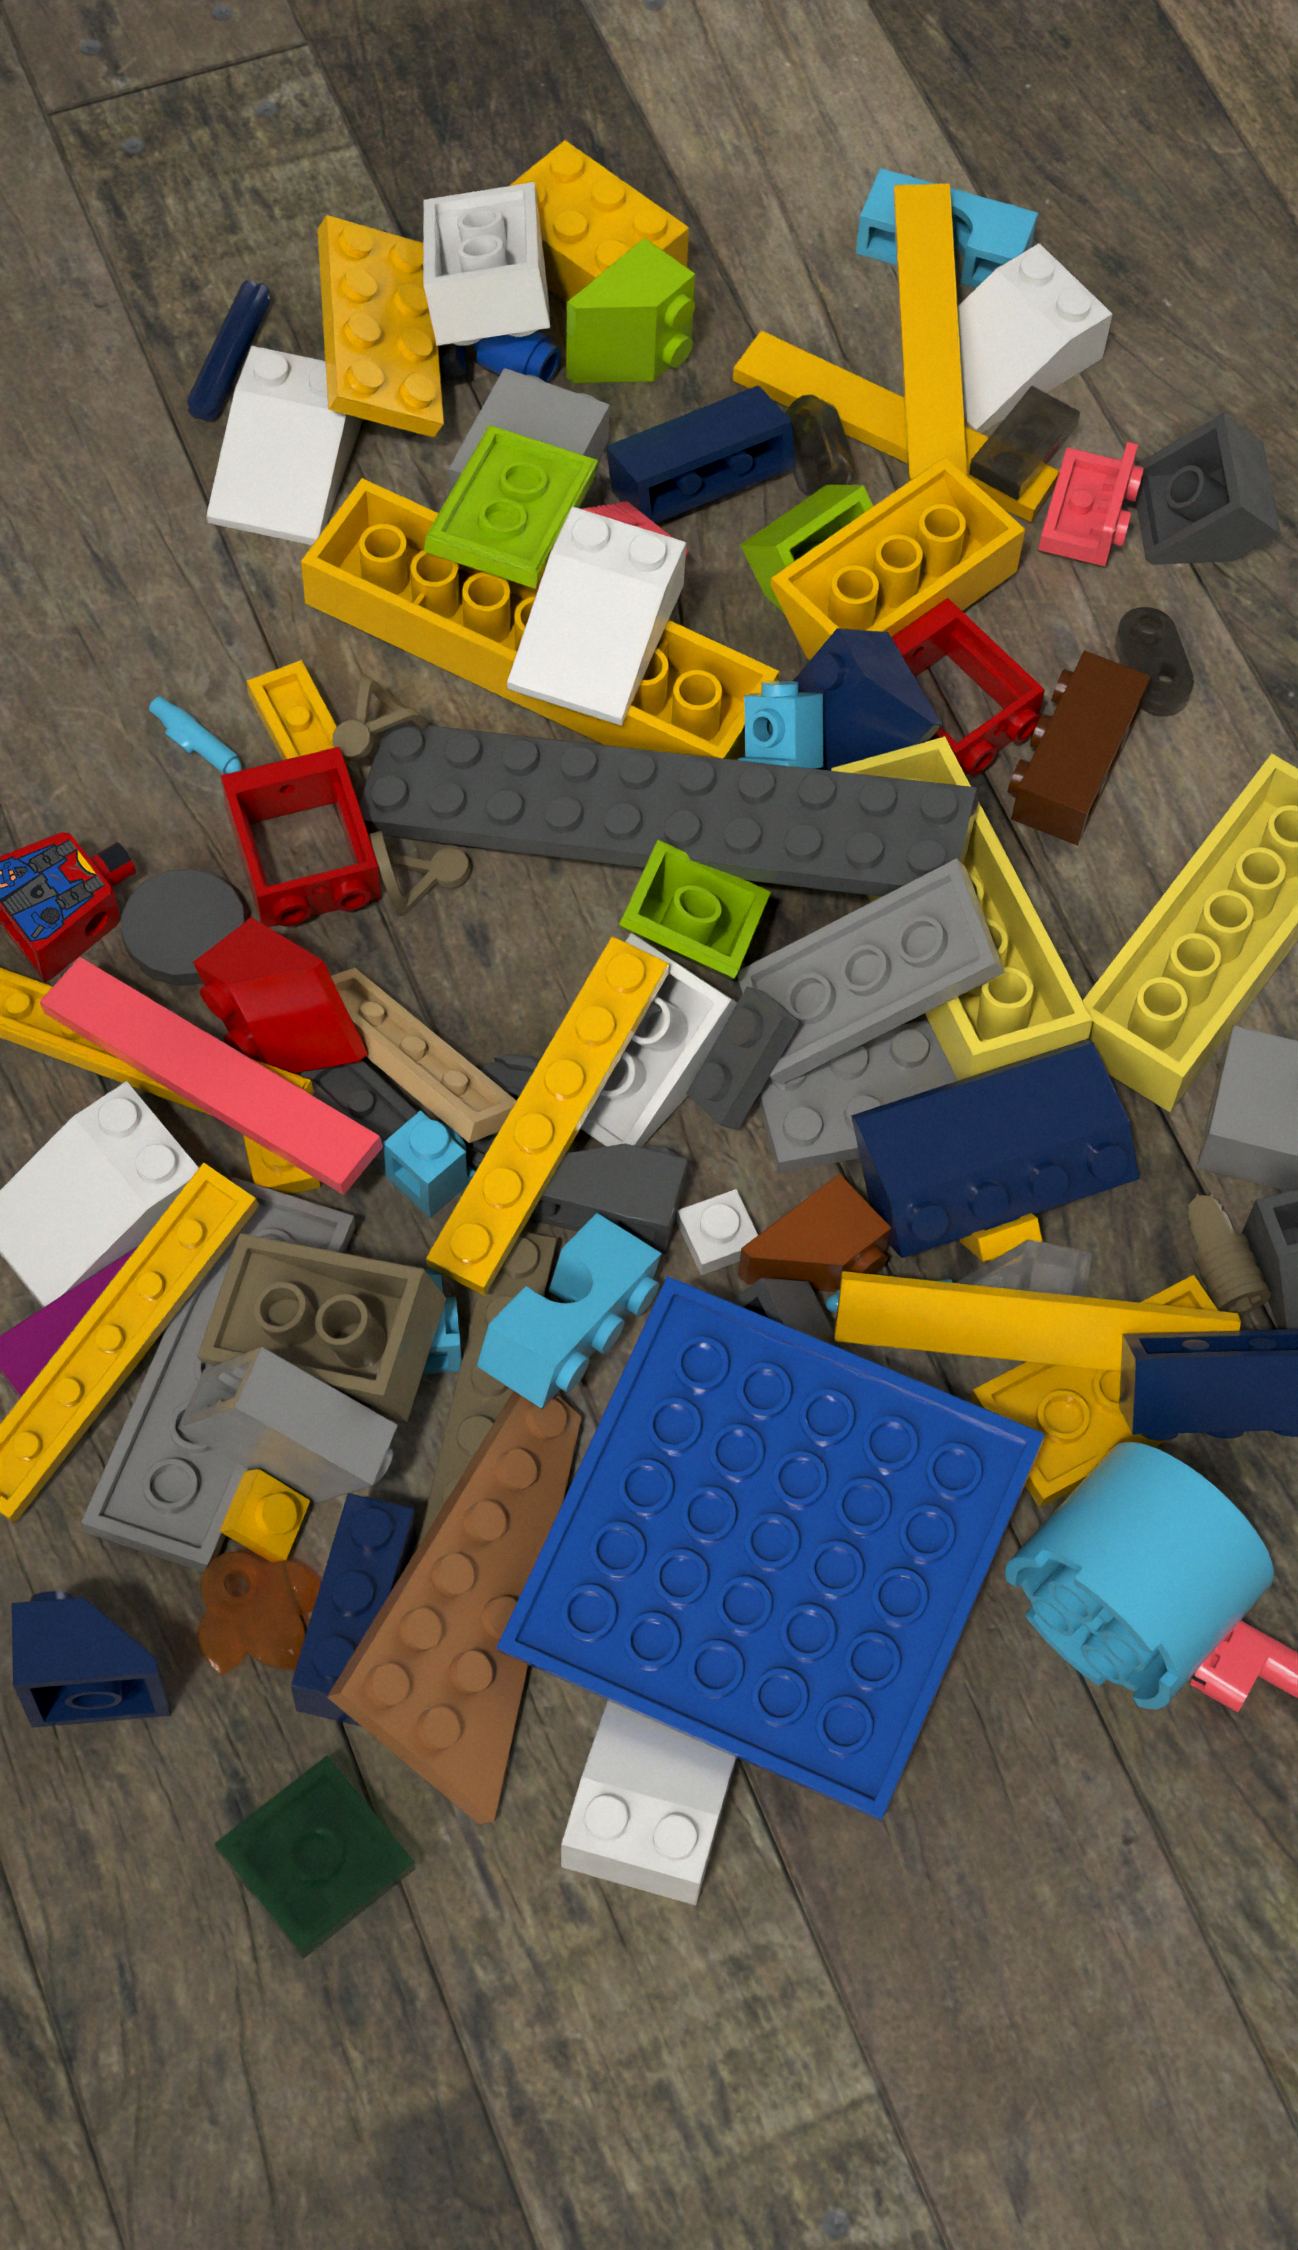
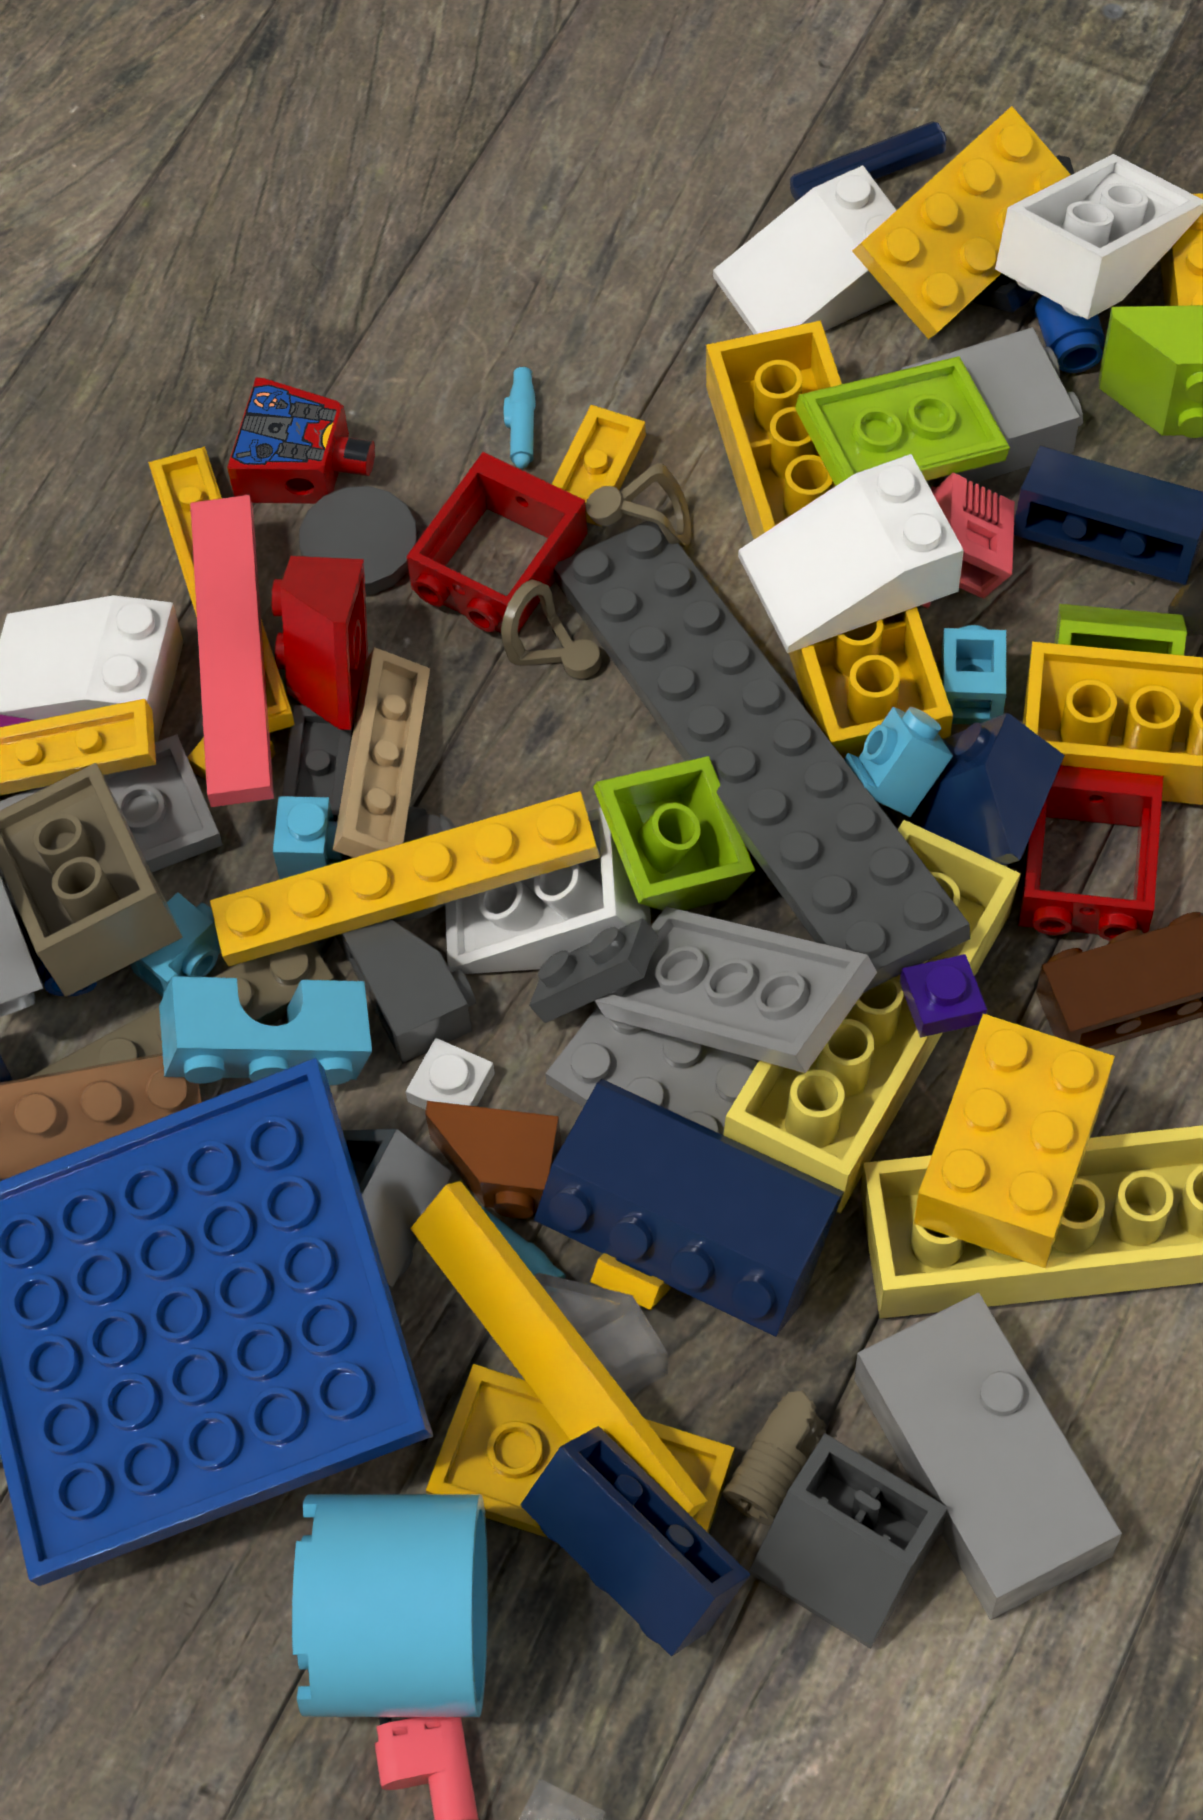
camera: 55 degrees right, 0 degrees up
(742, 628) = (974, 673): none -> medium azure brick
(1006, 853) = (942, 995): none -> dark purple plate
(1162, 901) = (1013, 1140): none -> yellow brick

